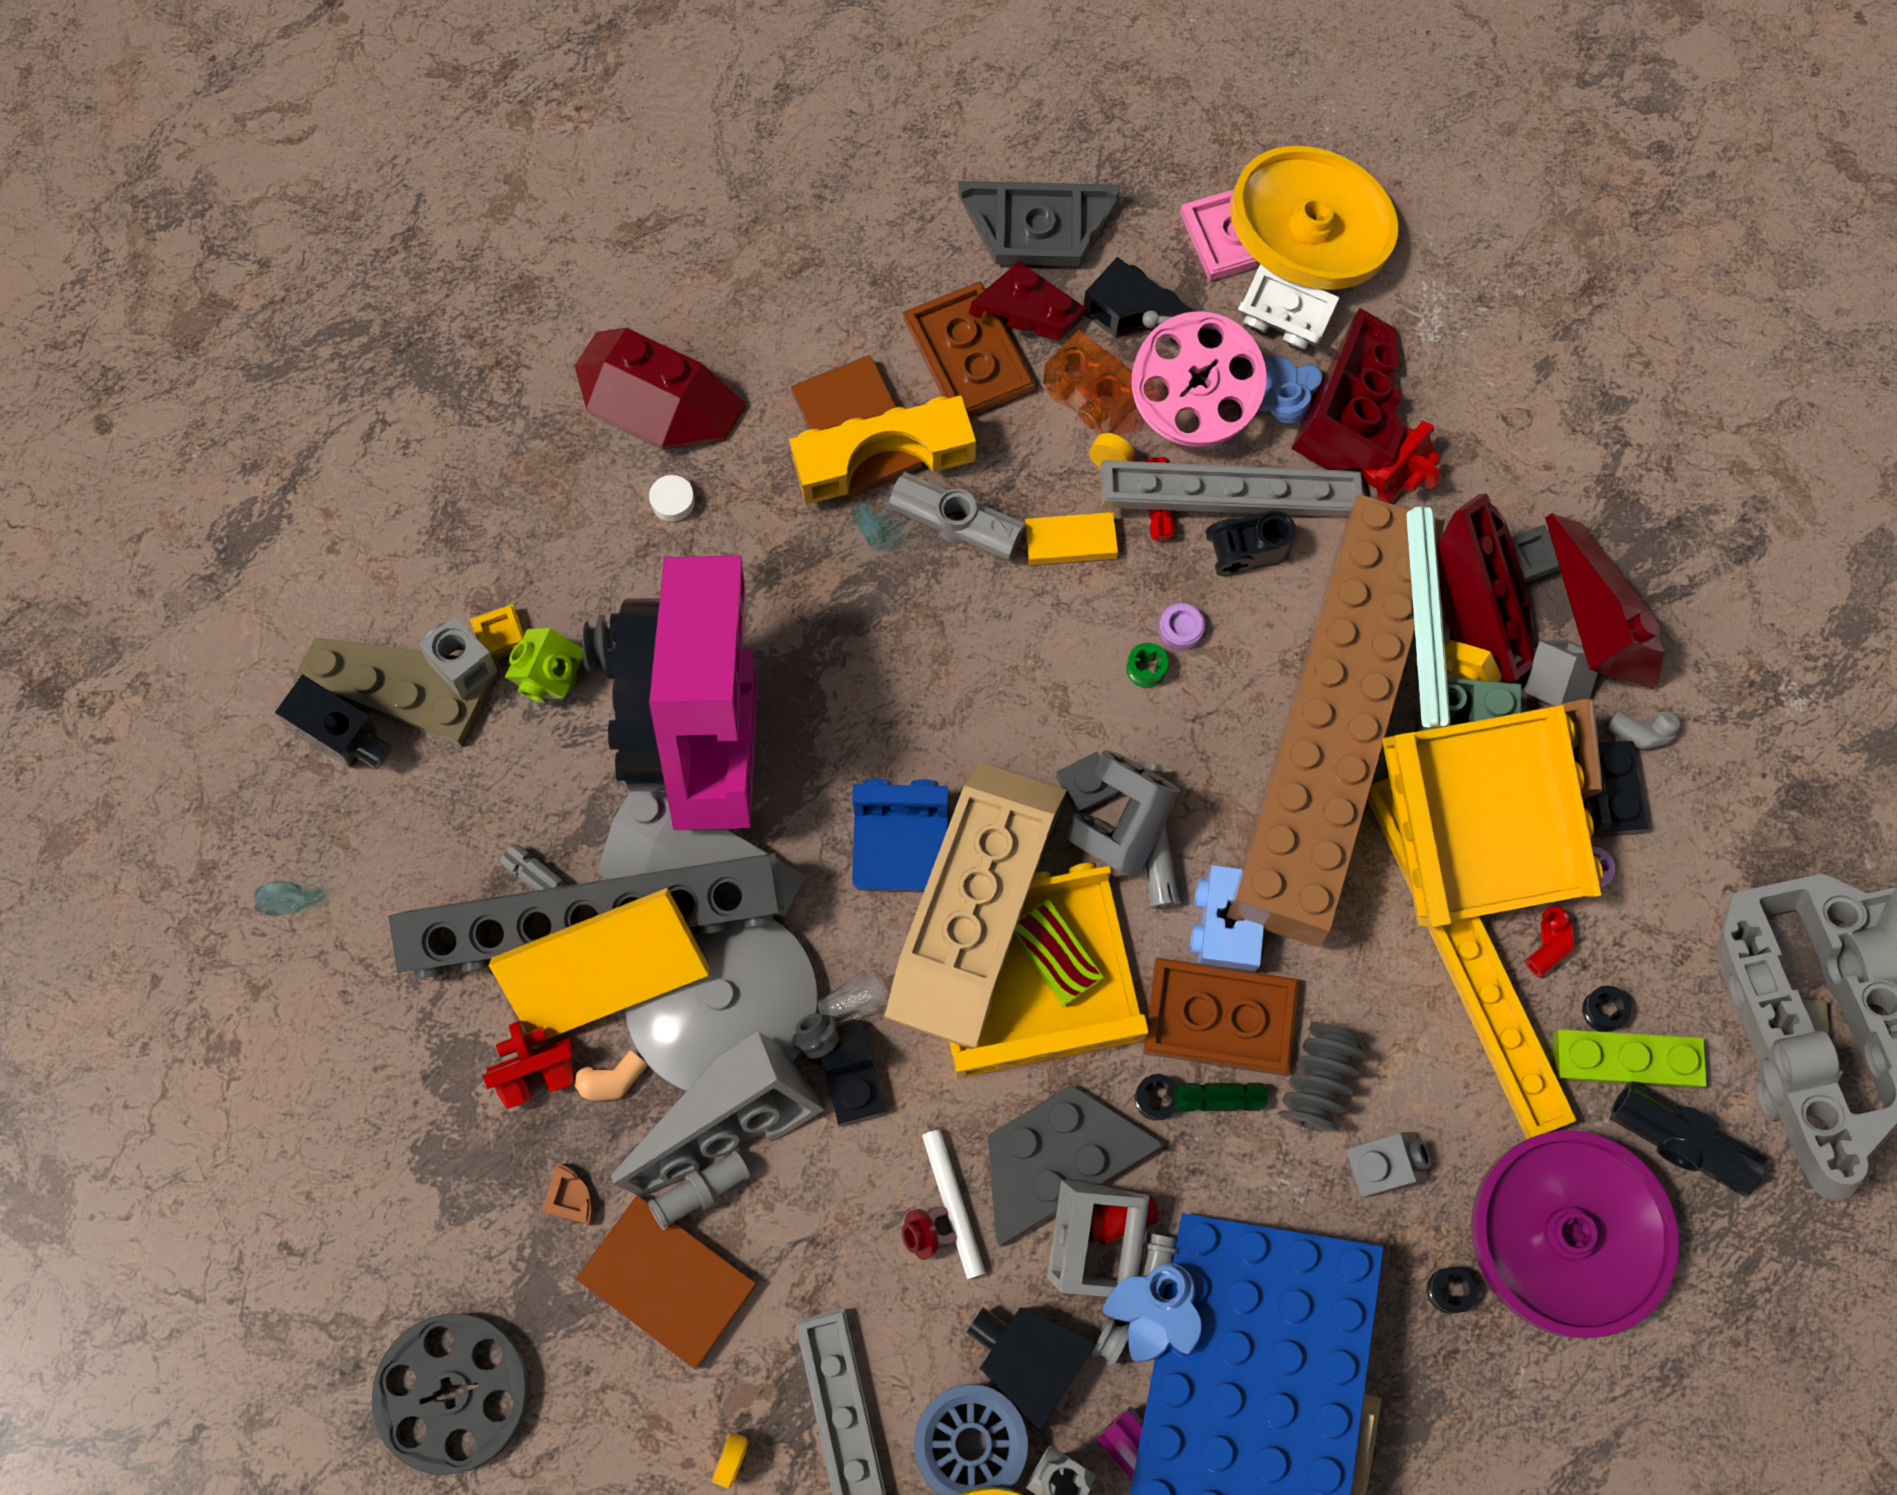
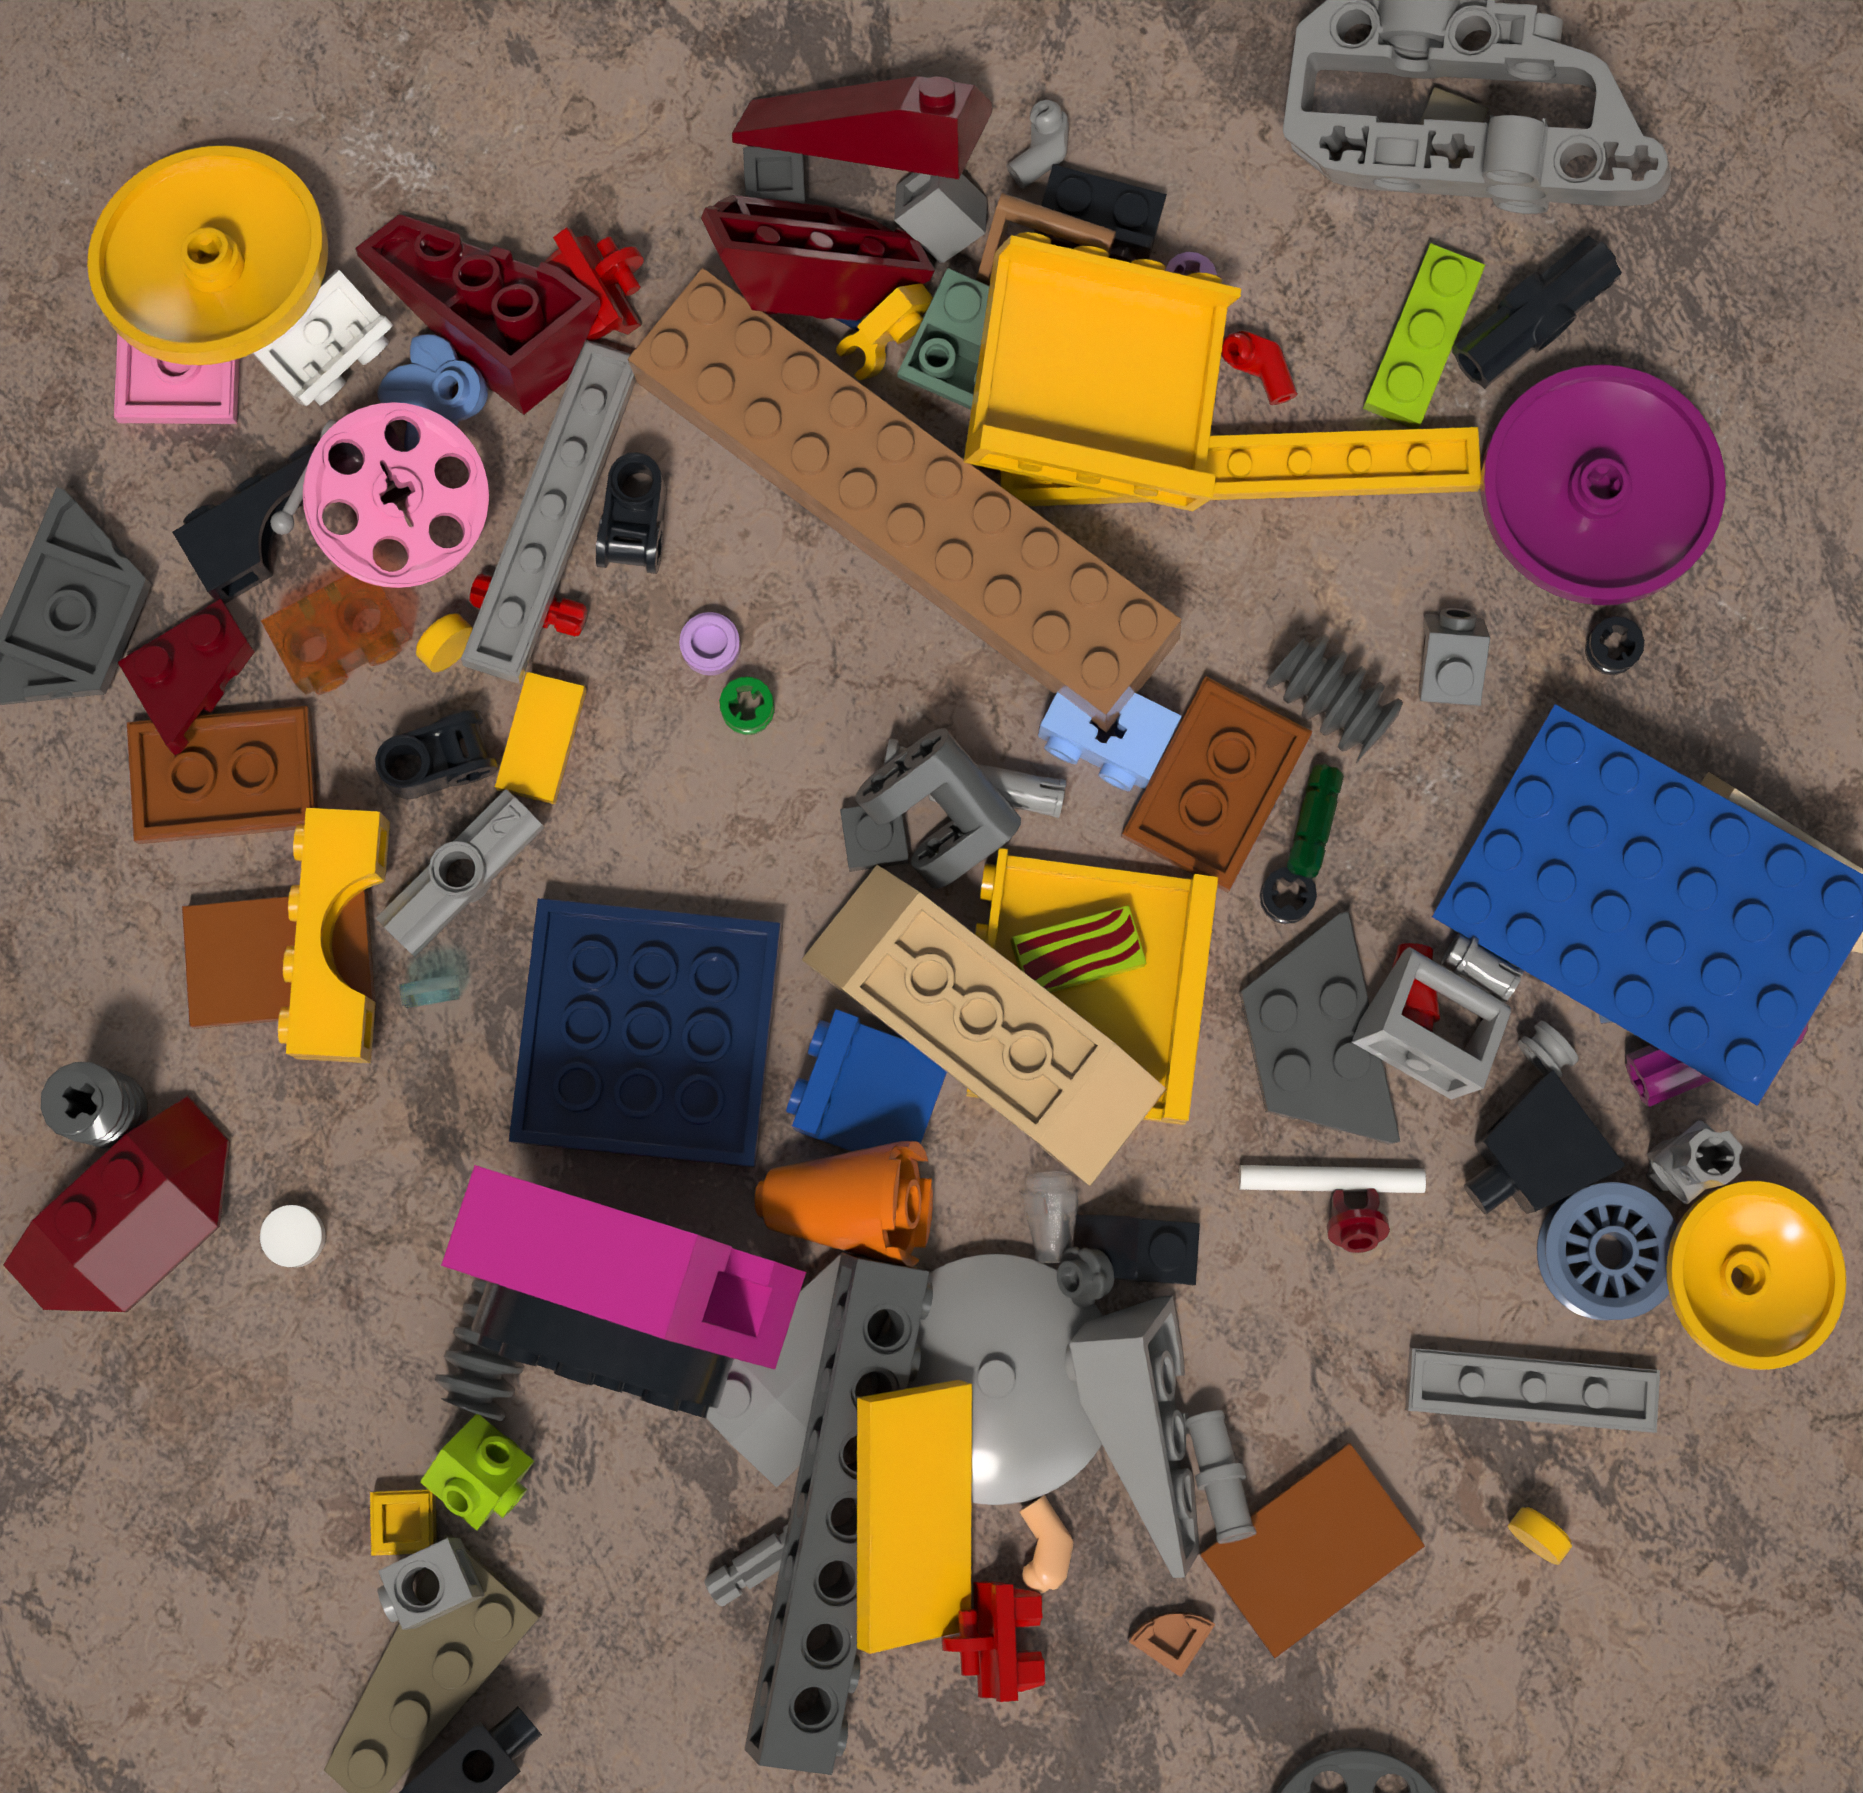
camera: 70 degrees left, 10 degrees up
(716, 336) = (71, 1098): none -> dark grey piece
(816, 855) = (854, 1201): none -> orange cone
(889, 675) = (645, 1033): none -> dark blue plate
(1034, 481) = (440, 756): none -> black piece
(1153, 1319) = (1548, 993): medium blue plate -> none
(1428, 618) = (830, 343): light aqua axle -> none
(1604, 1023) = (1374, 345): black bush -> none

